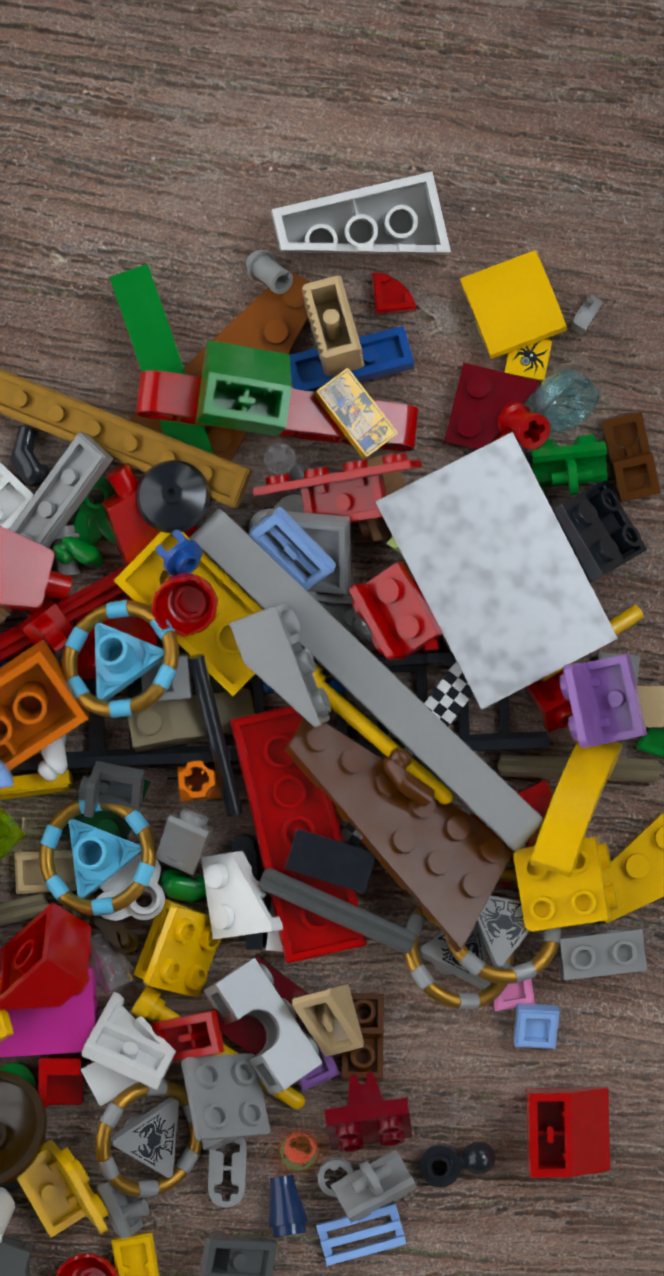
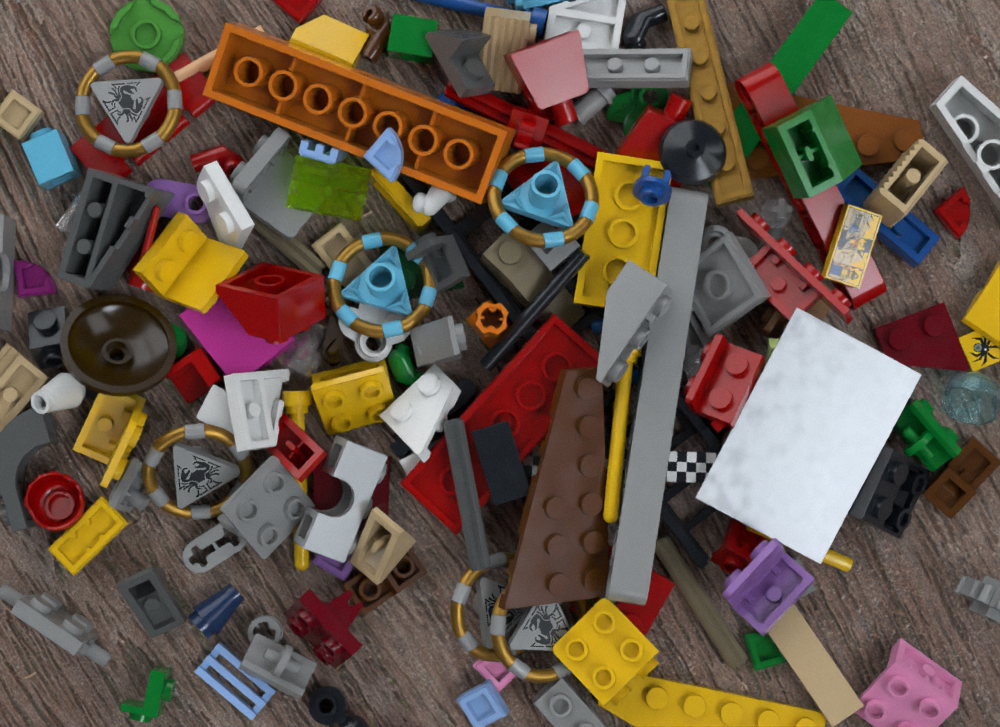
camera: 50 degrees right, 0 degrees up
(80, 550) = (601, 117): green arm -> none
(186, 603) = (619, 216): red hair -> none
(263, 267) = (909, 103): light grey pin -> none
(297, 546) = (727, 247): light blue tile -> none
(298, 1151) = (265, 590): clear orange tile -> none
(407, 783) = (601, 477): reddish brown arm -> none
(528, 428) = (932, 385): red bush -> none
(574, 806) = (670, 619): yellow slope -> none

